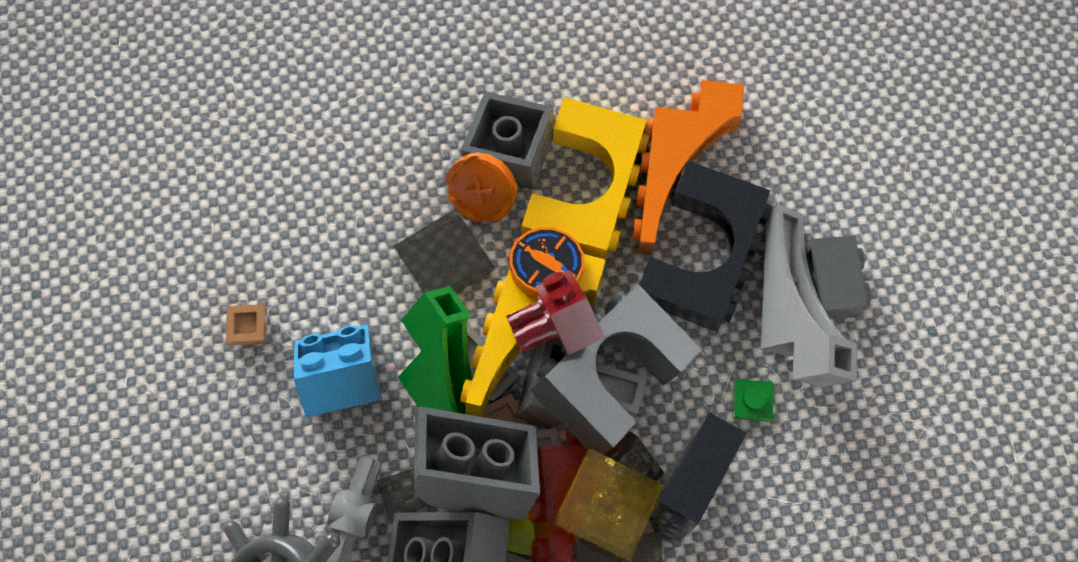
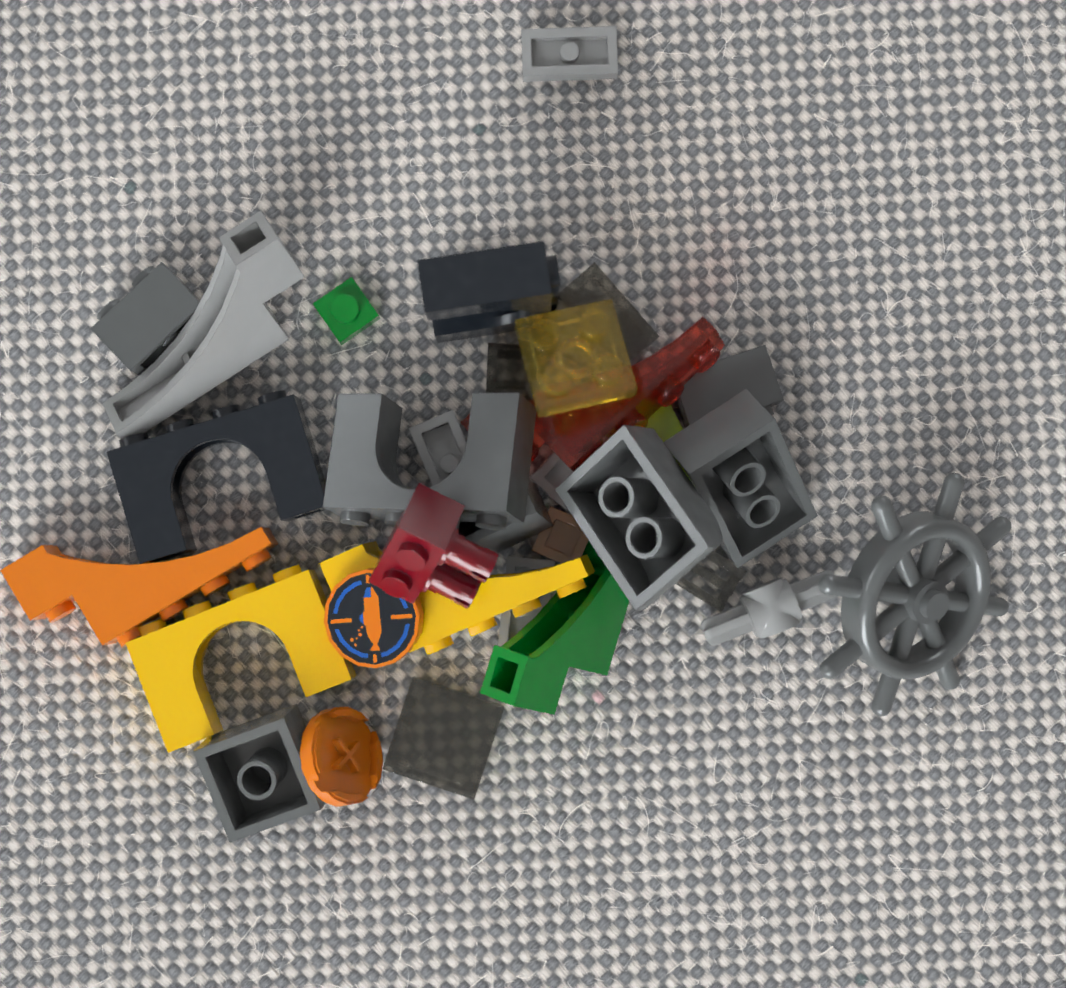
camera: 130 degrees left, 15 degrees up
(246, 325) = (675, 877): medium nougat plate -> none
(336, 370) = (648, 744): dark azure slope -> none

